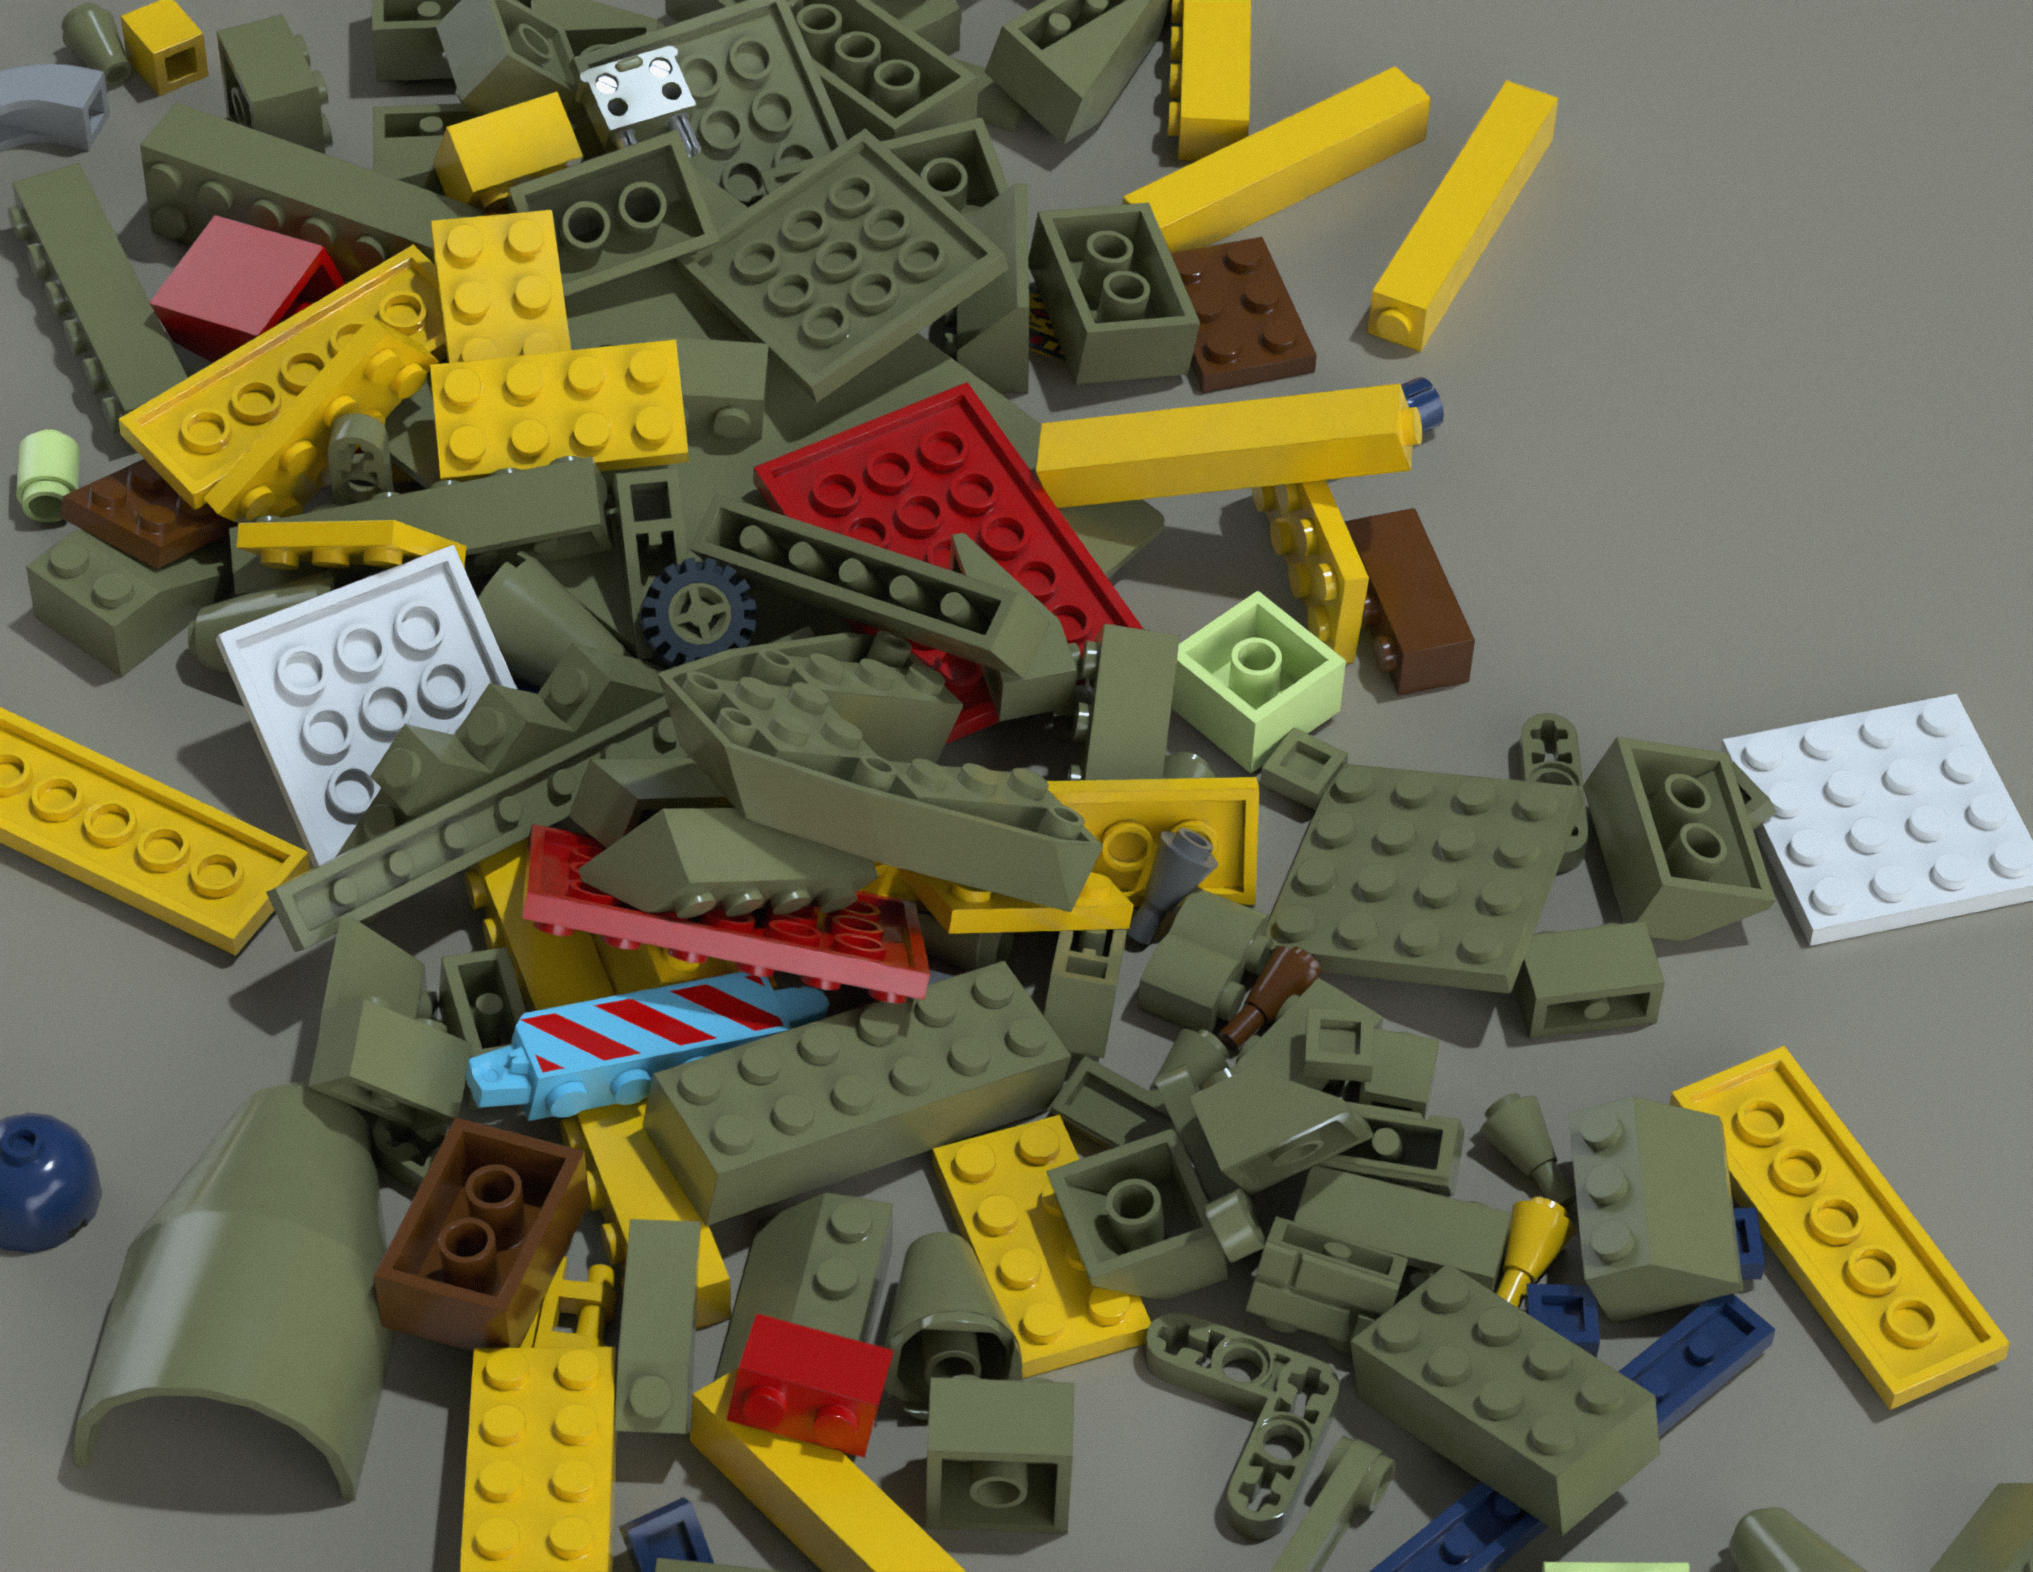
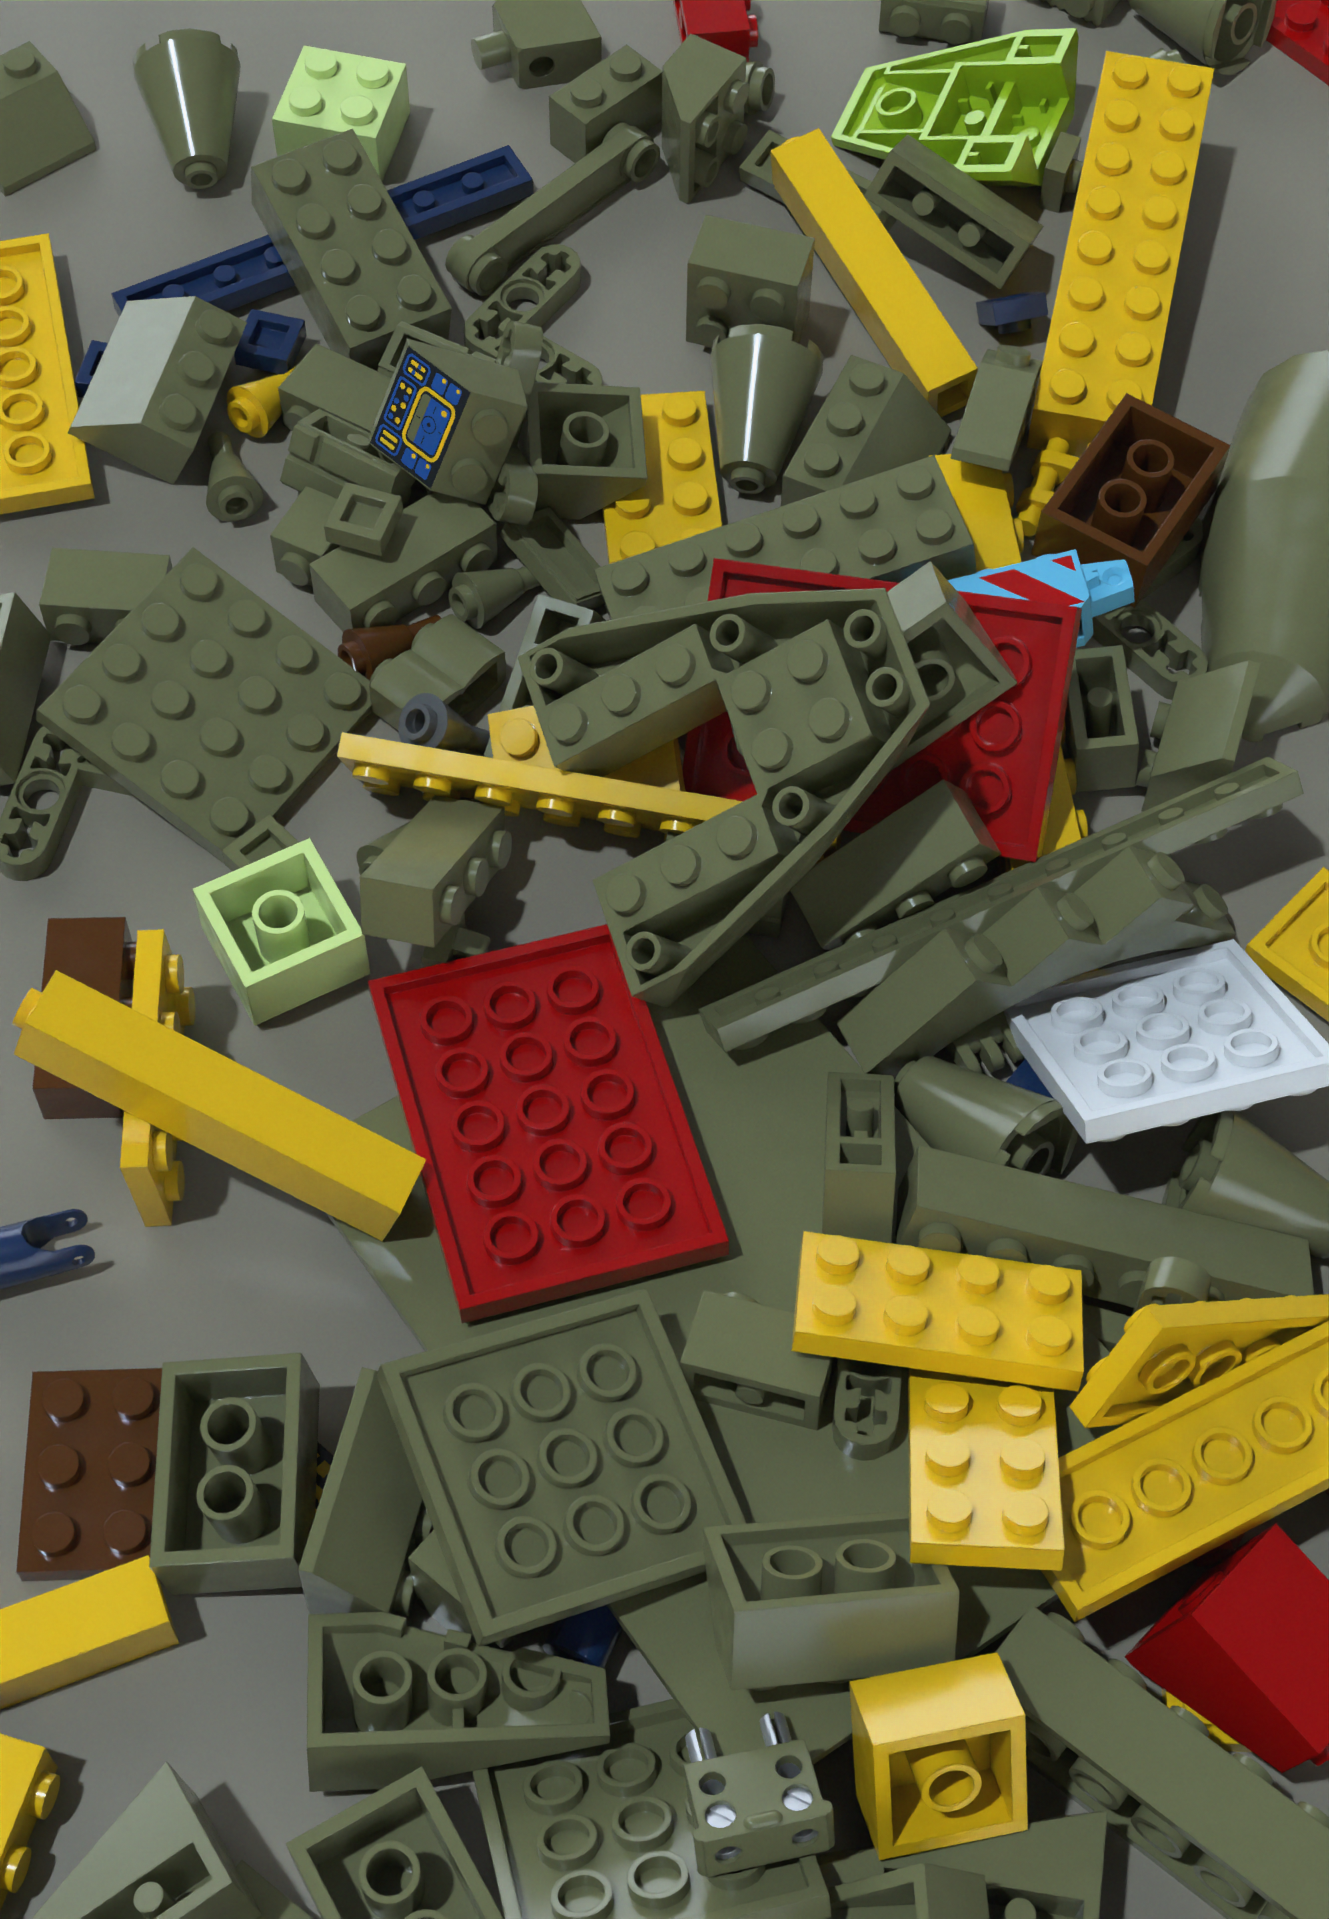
camera: 165 degrees left, 10 degrees up
(339, 543) = (1183, 1166): yellow wing -> none
(390, 1063) = (1198, 636): olive brick -> none
(711, 593) = (829, 1063): black wheel -> none
(809, 1385) = (889, 325): red brick -> none
(872, 585) = (657, 1000): olive brick -> none
(1056, 665) = (512, 966): olive slope -> none

